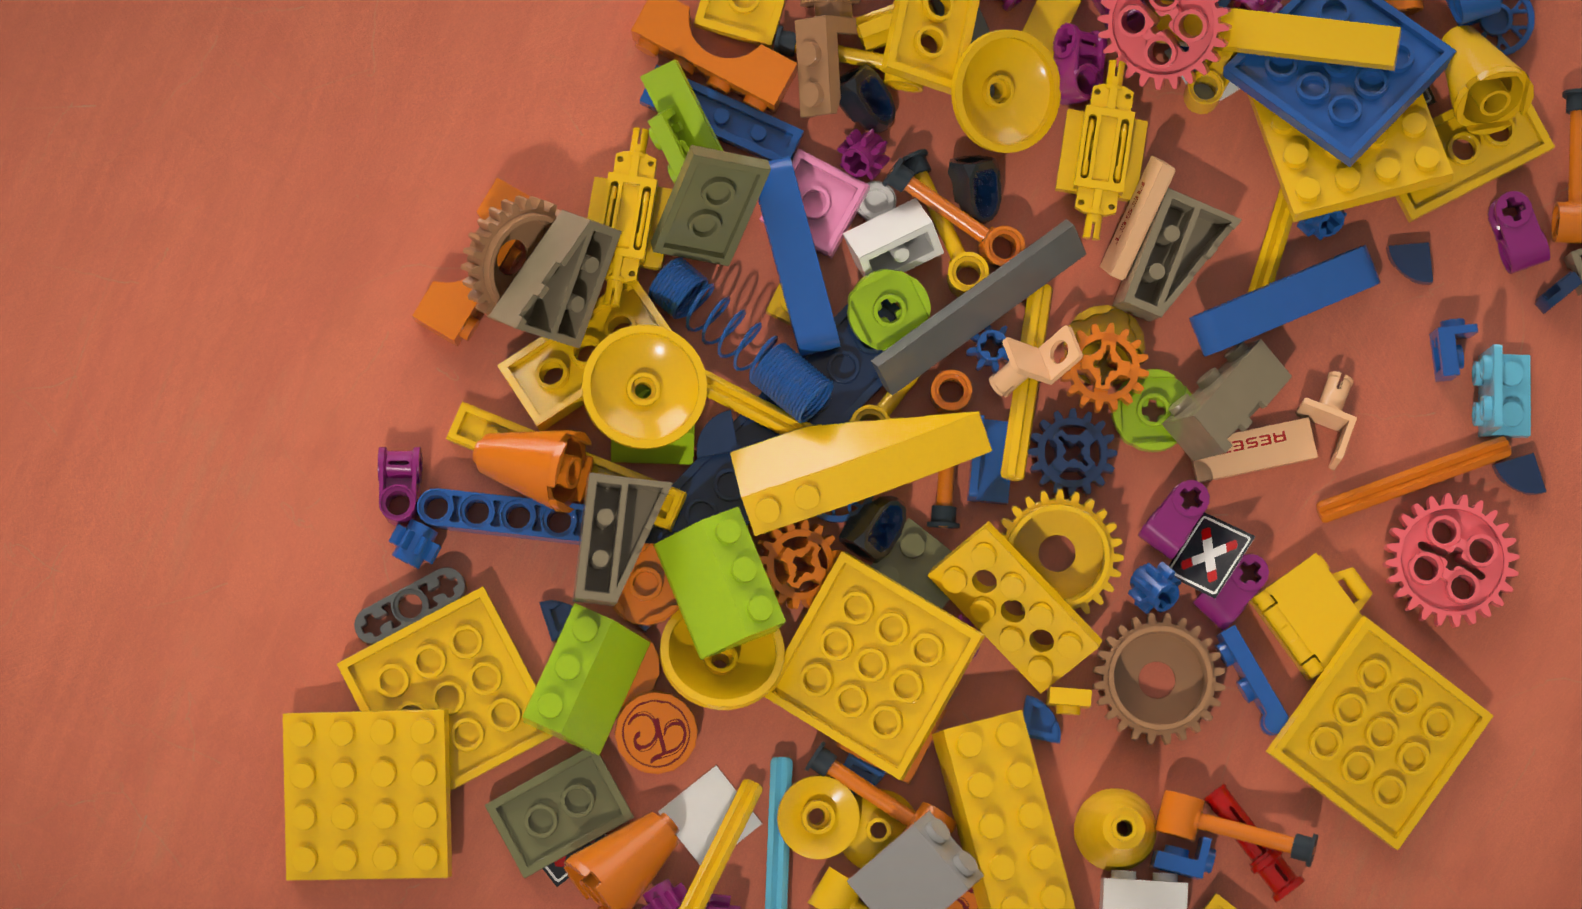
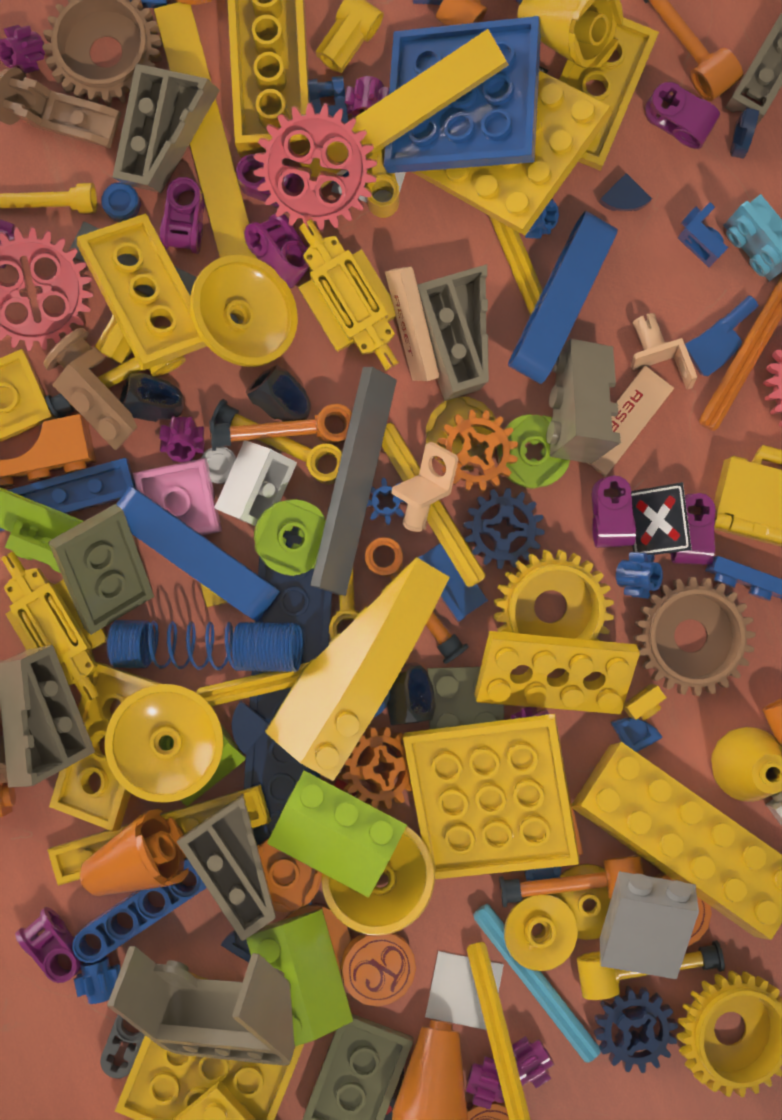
camera: 40 degrees left, 5 degrees up
(487, 647) = (208, 1016): none -> dark tan windscreen
(1391, 452) = (720, 341): none -> blue piece

